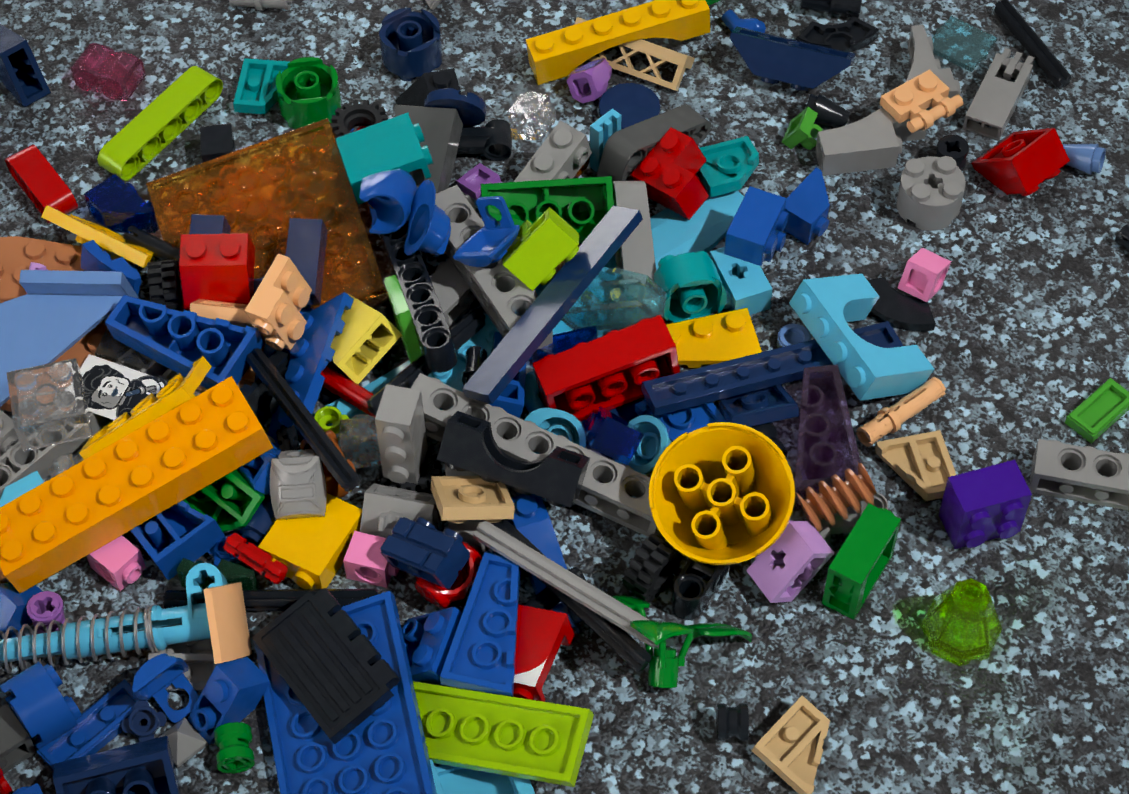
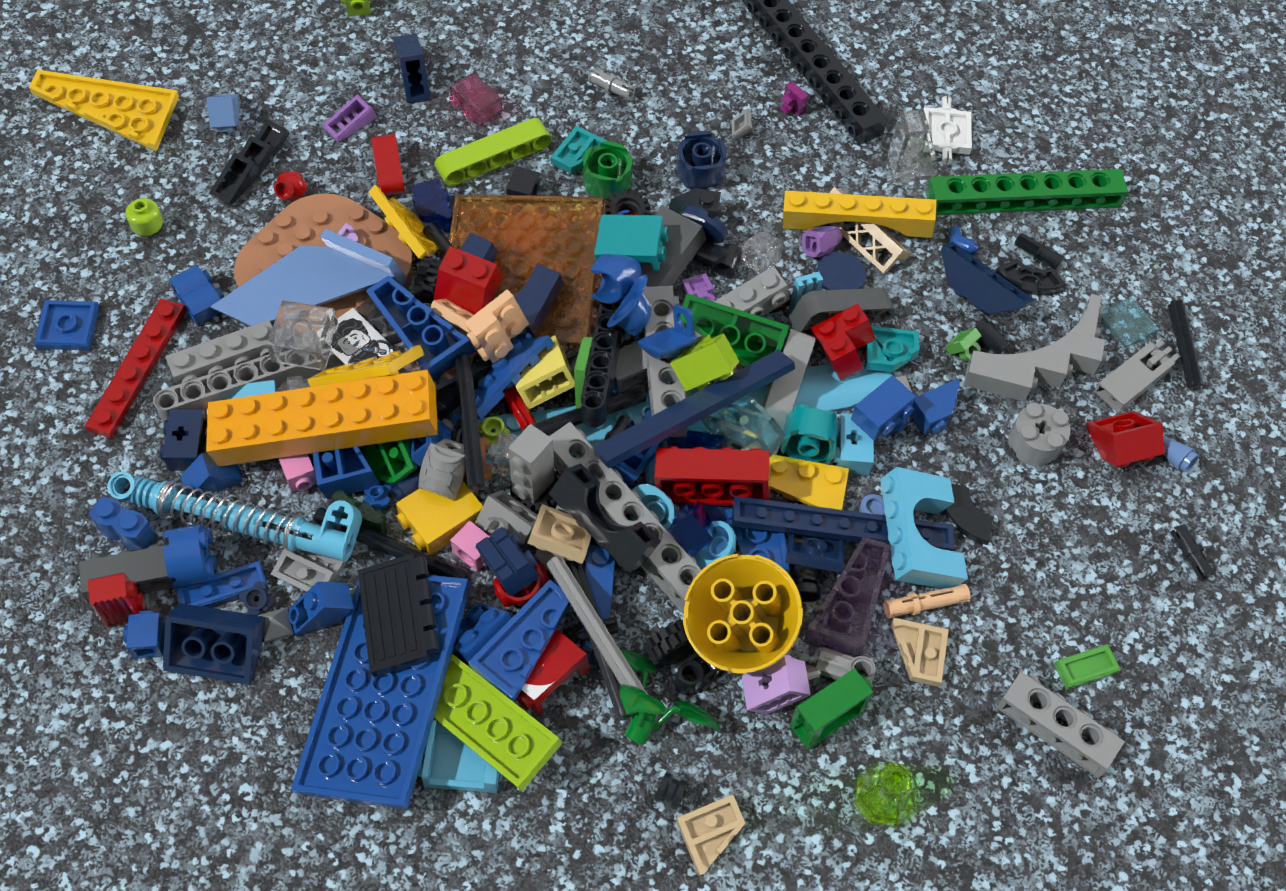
camera: 20 degrees right, 5 degrees up
(44, 608) = (230, 485): medium lavender bush -> none
(96, 259) = (391, 246): blue slope -> none
(158, 675) = (276, 571): blue piece -> none
(227, 622) = (342, 552): light nougat slope -> none
(233, 746) = (307, 646): green wheel -> none
(255, 558) = (390, 511): red axle -> none
(838, 497) = (834, 653): nougat piece -> none
(917, 95) = (1066, 352): light nougat plate -> none
(924, 274) = (999, 499): bright pink brick -> none
(954, 147) = (1079, 403): black wheel -> none
(984, 504) = (950, 706): dark purple brick -> none

